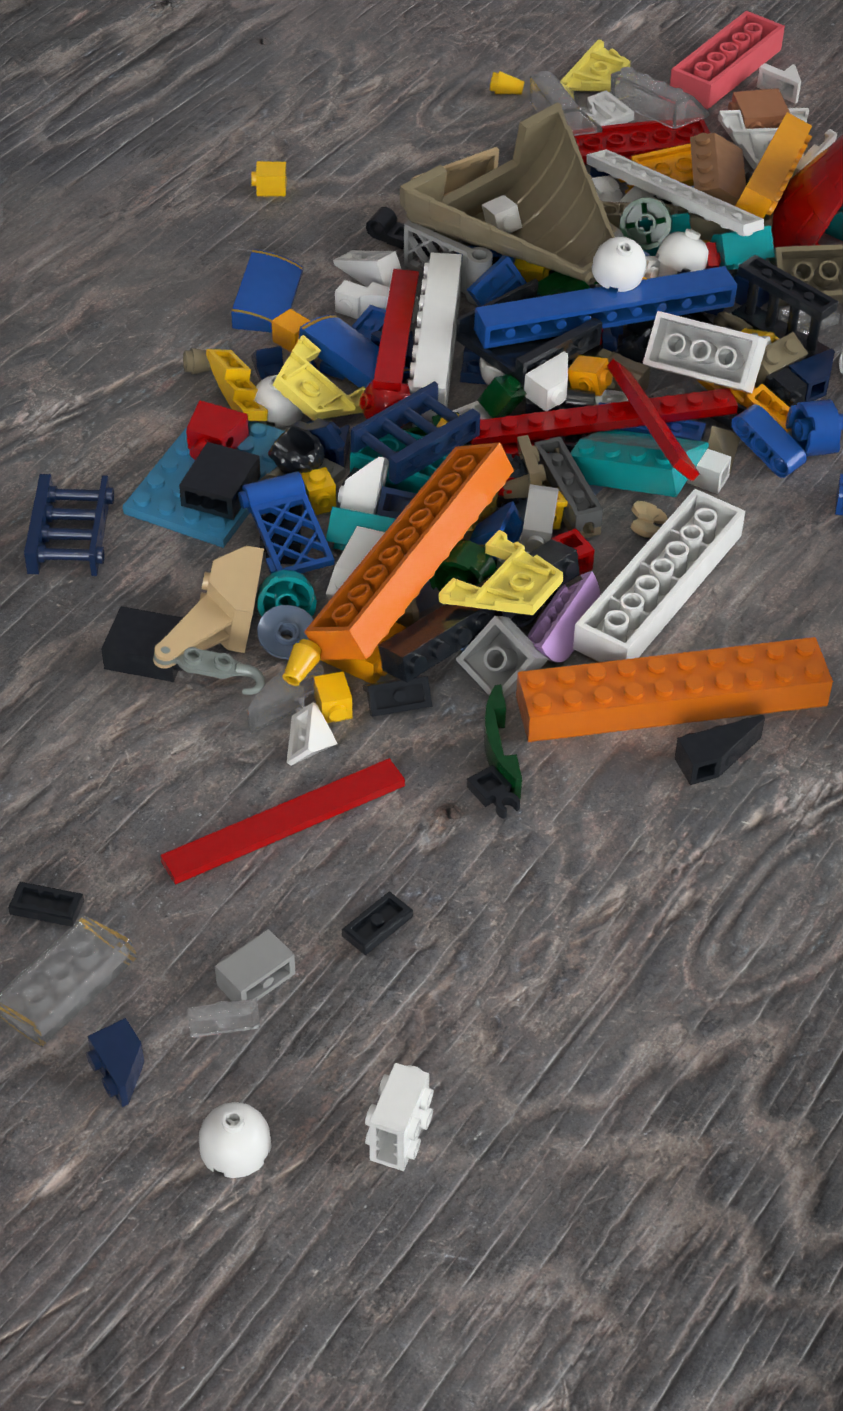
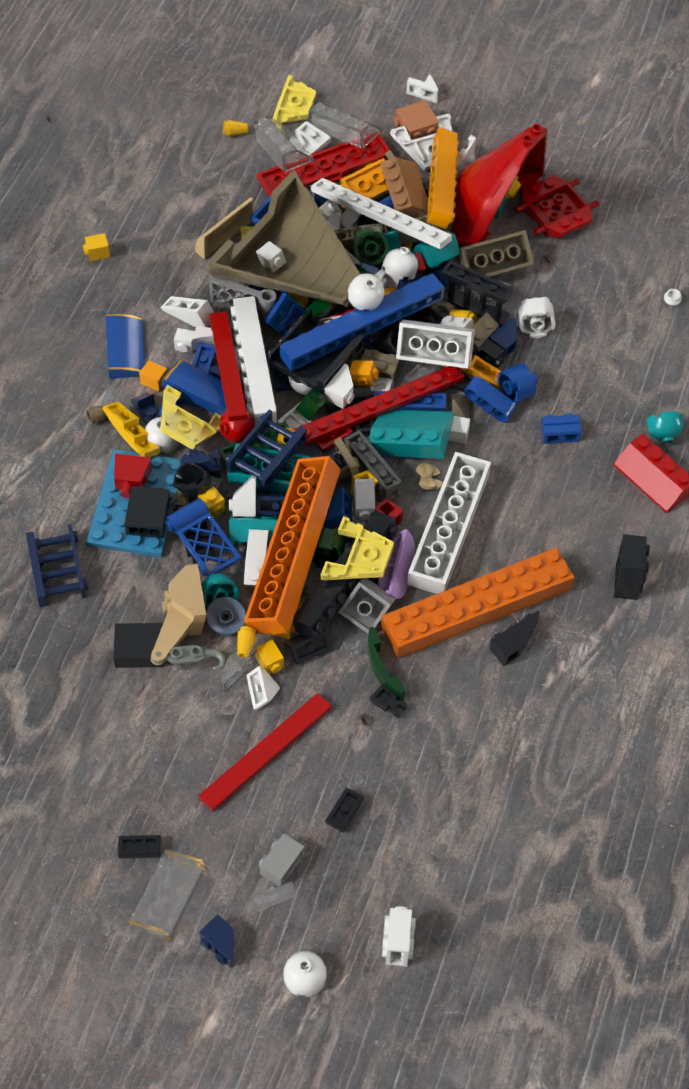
camera: 15 degrees left, 10 degrees up
(384, 227) = (194, 276): black plate -> none
(653, 420) = (417, 409): red tile -> none
(728, 58) = (382, 77): coral brick -> none

